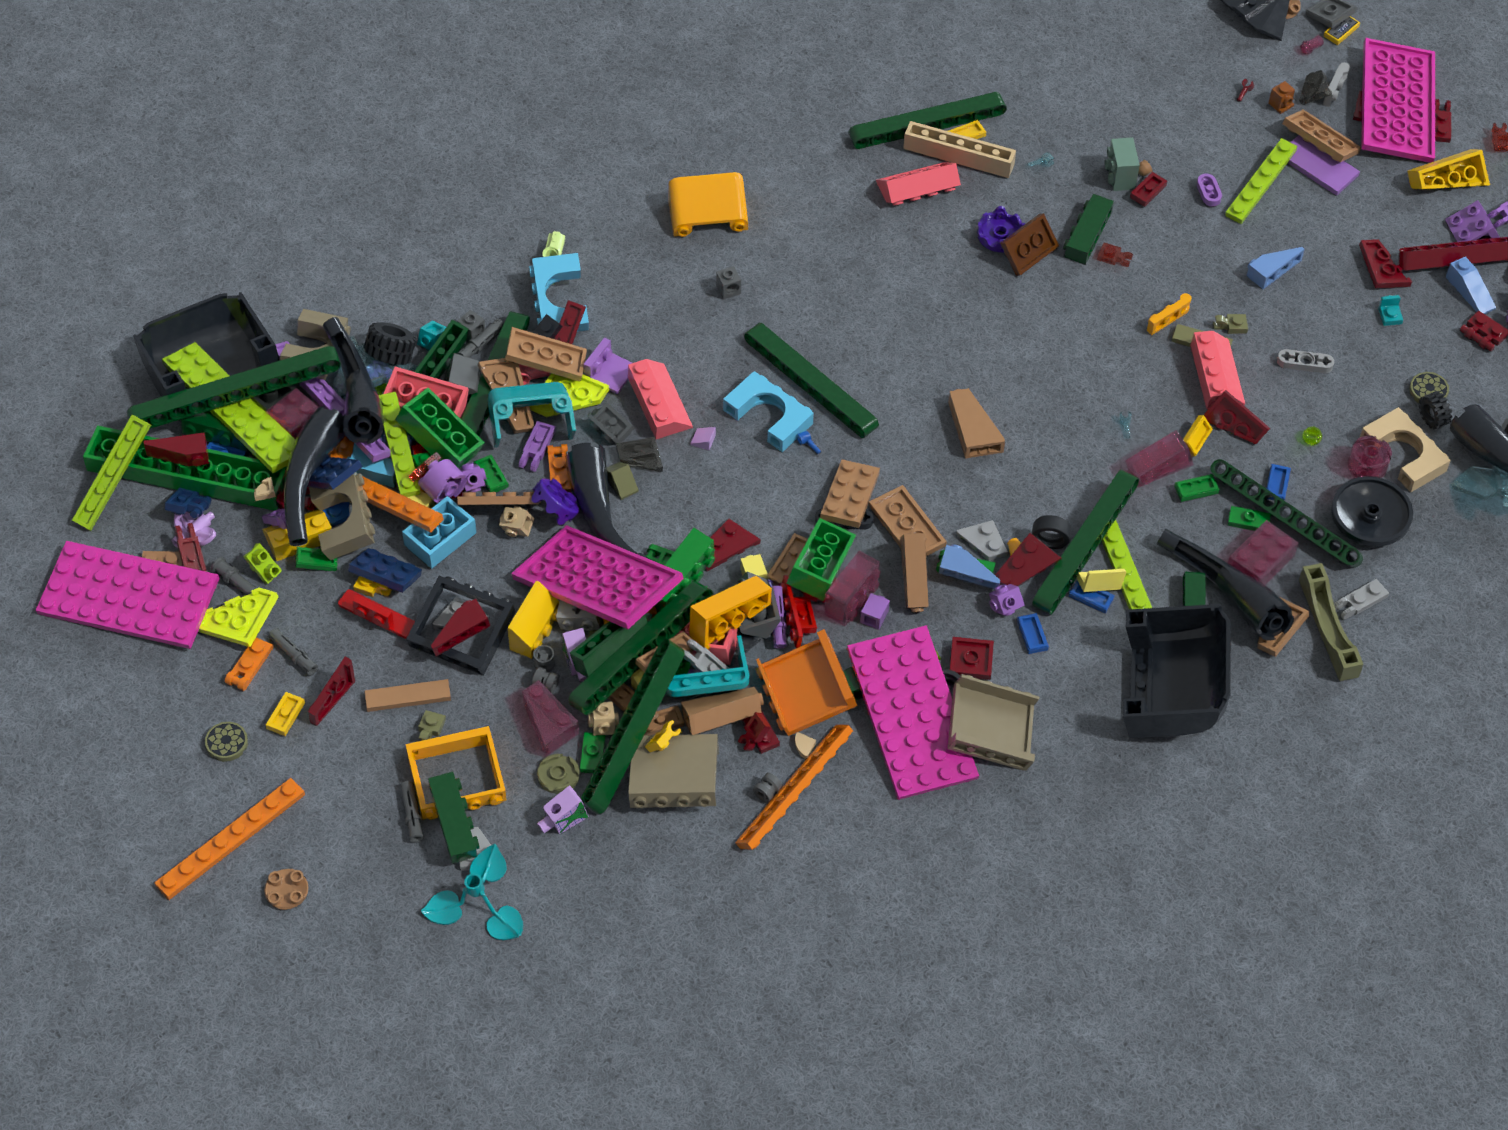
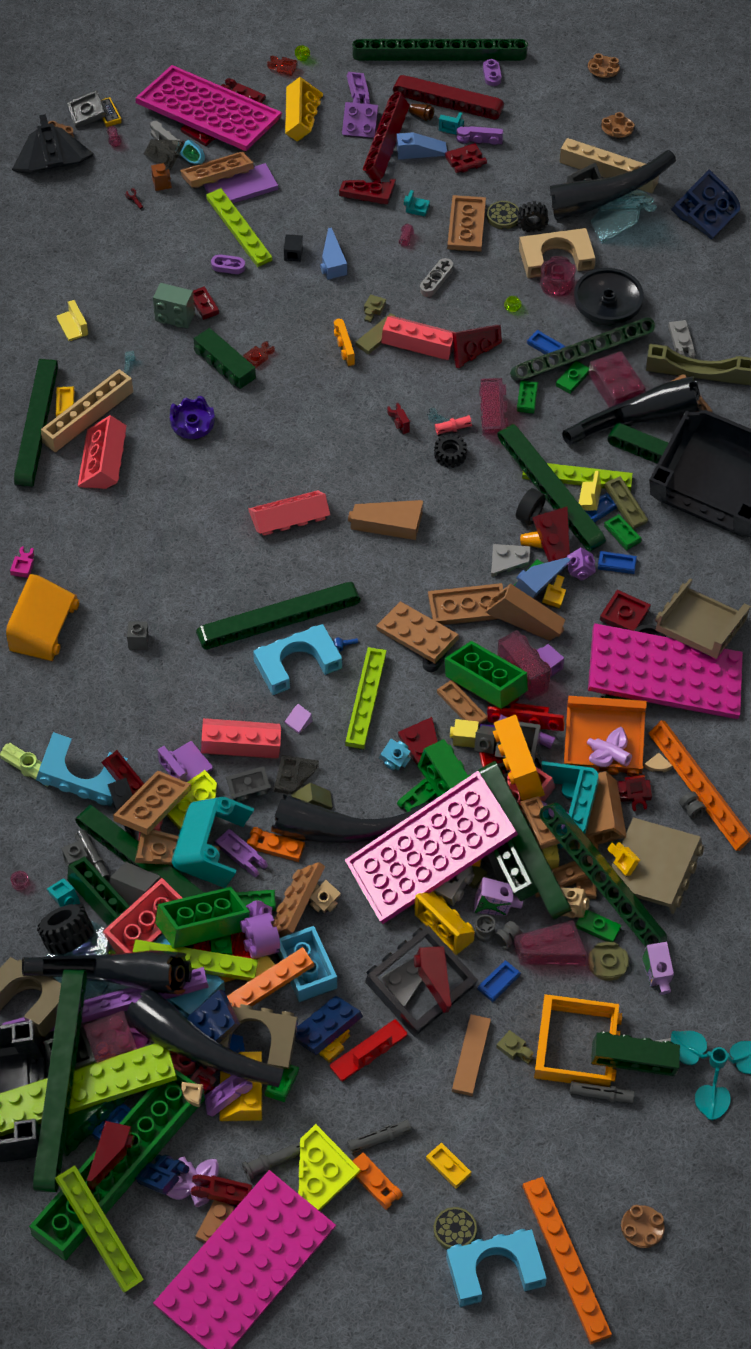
camera: 65 degrees left, 0 degrees up
(195, 757) = (518, 1247): none -> medium azure arch
(262, 563) = (270, 1128): lime hips -> none
(333, 691) = (446, 1119): dark red wing -> none
(423, 468) = (237, 943): clear red plate -> none
(433, 295) = (20, 875): none -> clear pink bush
(496, 691) = (499, 981): none -> blue tile
(556, 499) = (311, 852): dark purple plate -> none
(698, 518) = (398, 748): none -> medium azure brick
(703, 659) = (556, 795): light grey hinge -> none
(754, 480) = (365, 698): none -> lime plate
(762, 173) = (22, 565): none -> dark pink plate
(787, 691) = (610, 750): none -> lavender plant
(934, 344) = (289, 512): none -> coral slope
(959, 590) = (554, 593): none -> yellow plate
(1029, 244) = (222, 403): reddish brown plate -> none
(1062, 102) = (73, 322): none -> light yellow panel
(1071, 624) = (622, 532): none -> green plate
(1090, 438) = (450, 442): none -> black tyre
(1100, 393) = (401, 421): none -> dark red plate
(1109, 614) = (626, 502): none -> olive tile
(1121, 438) = (453, 425): none -> coral pin
(1197, 434) = (473, 370): yellow tile -> none
(1263, 231) = (293, 248): none -> black brick
(1330, 109) = (192, 153): none -> rock
(1344, 316) = (407, 230): none -> clear pink pin
(1394, 360) = (466, 223): none -> medium nougat plate

